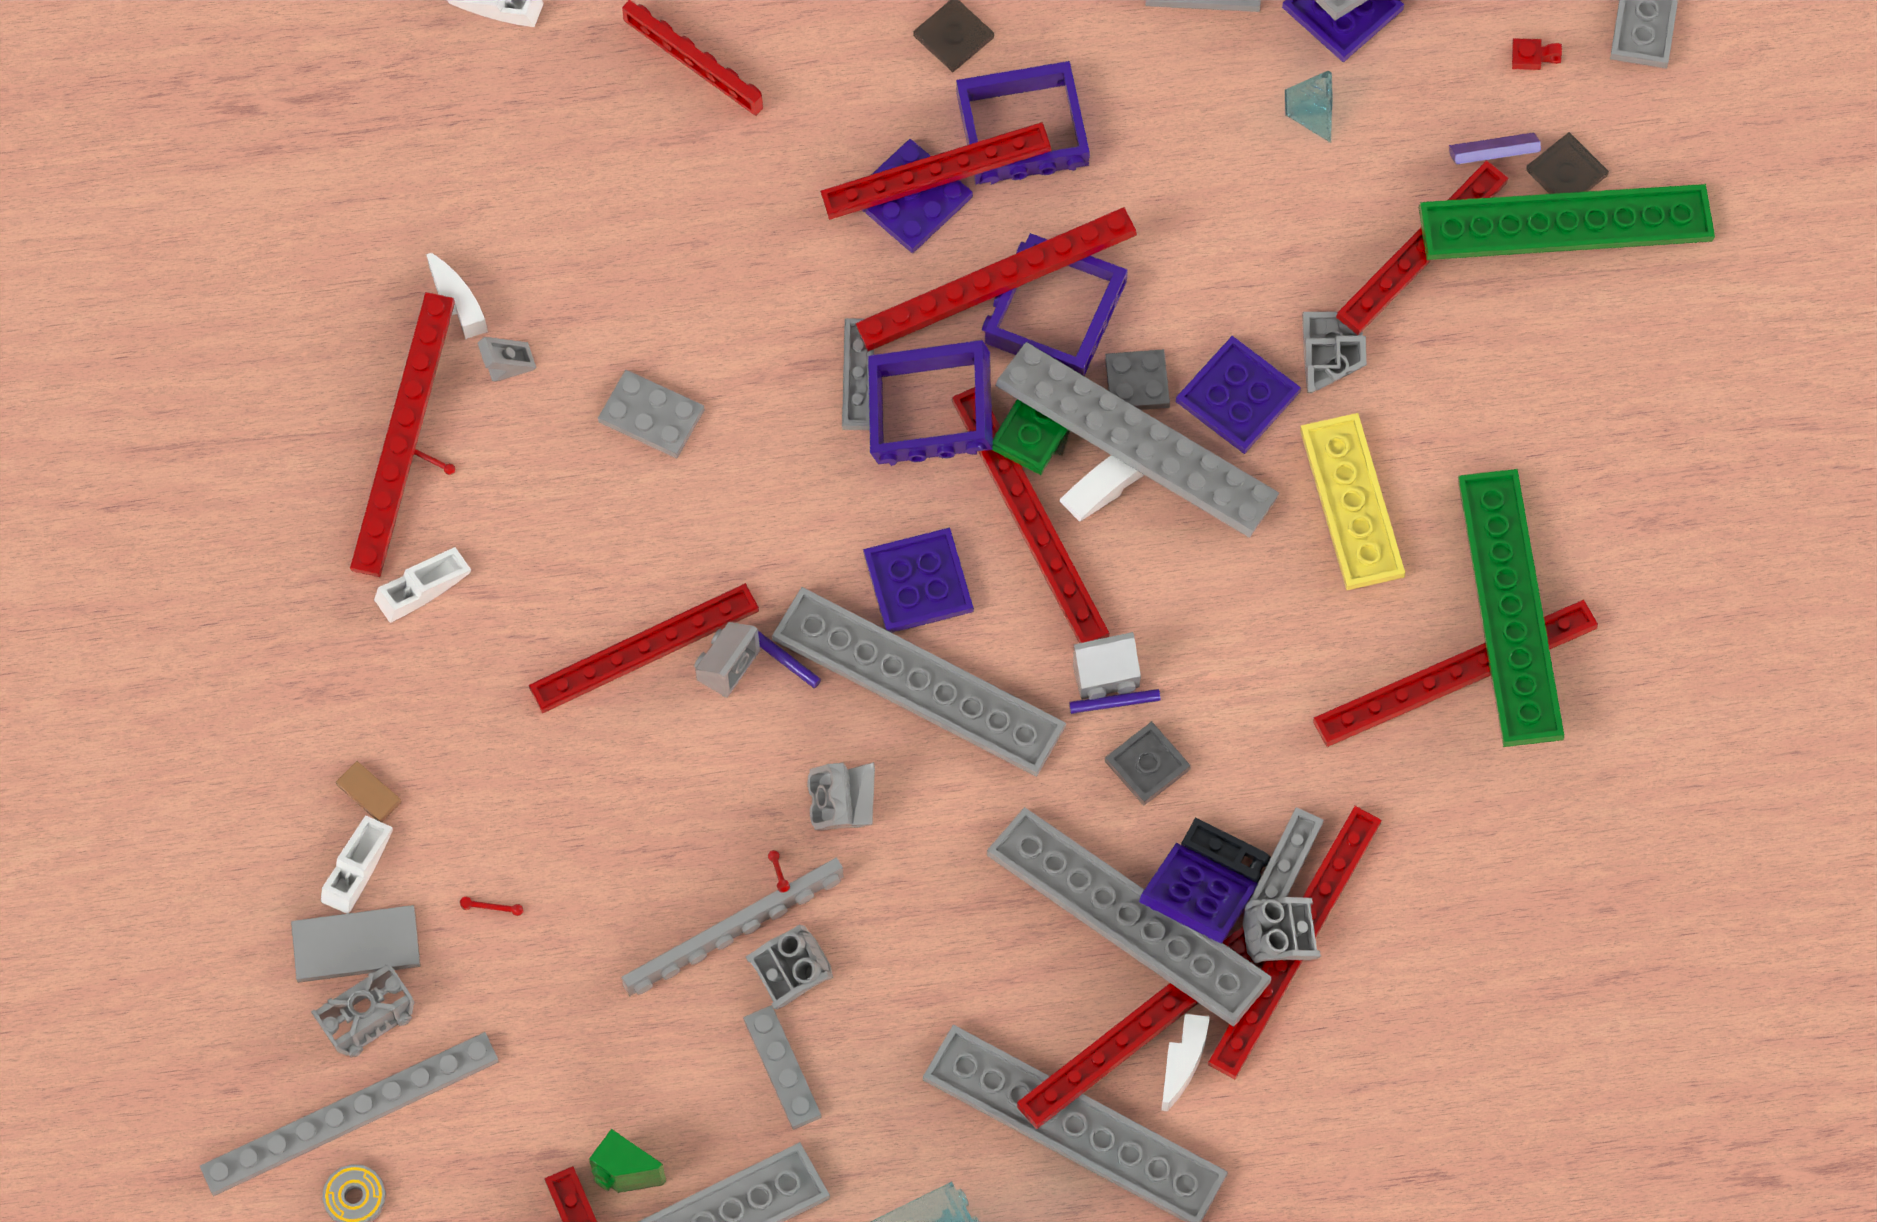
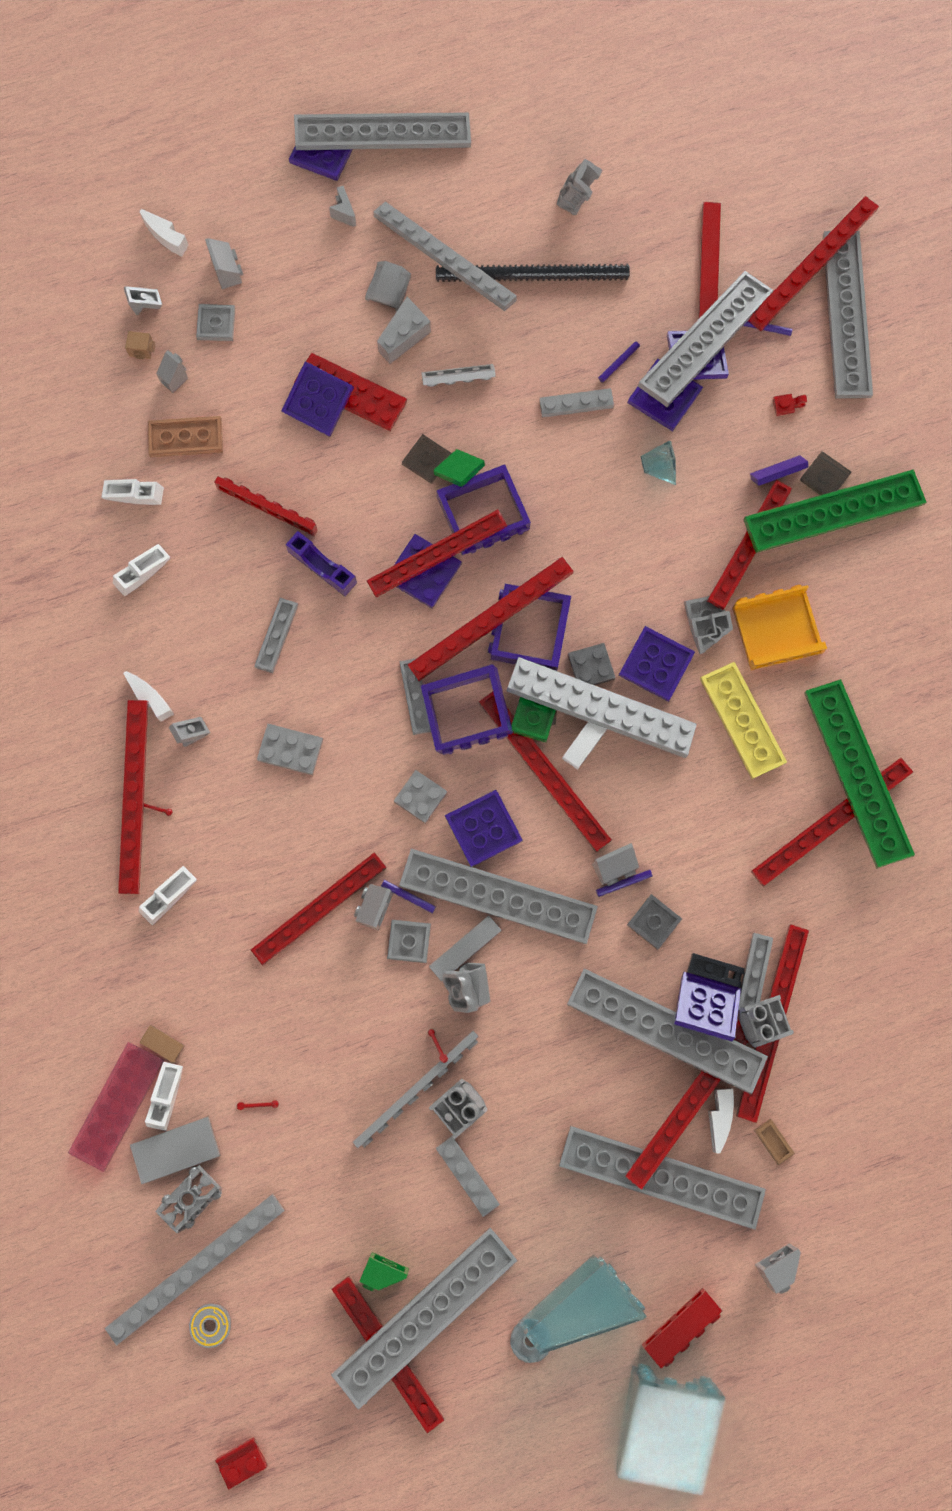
camera: 15 degrees left, 10 degrees up
(282, 864) = (116, 1106): none -> clear pink plate
(482, 115) = (140, 569): none -> white slope
(666, 247) = (276, 635): none -> light grey tile
(769, 720) = (409, 941): none -> light grey tile
(773, 174) = (311, 557): none -> dark purple arch
(833, 518) = (420, 796): none -> light grey plate
(855, 743) = (465, 947): none -> light grey tile
(998, 54) = (459, 467): none -> green tile
(1258, 1113) = (774, 1142): none -> medium nougat tile
(1439, 377) = (778, 627): none -> light orange panel

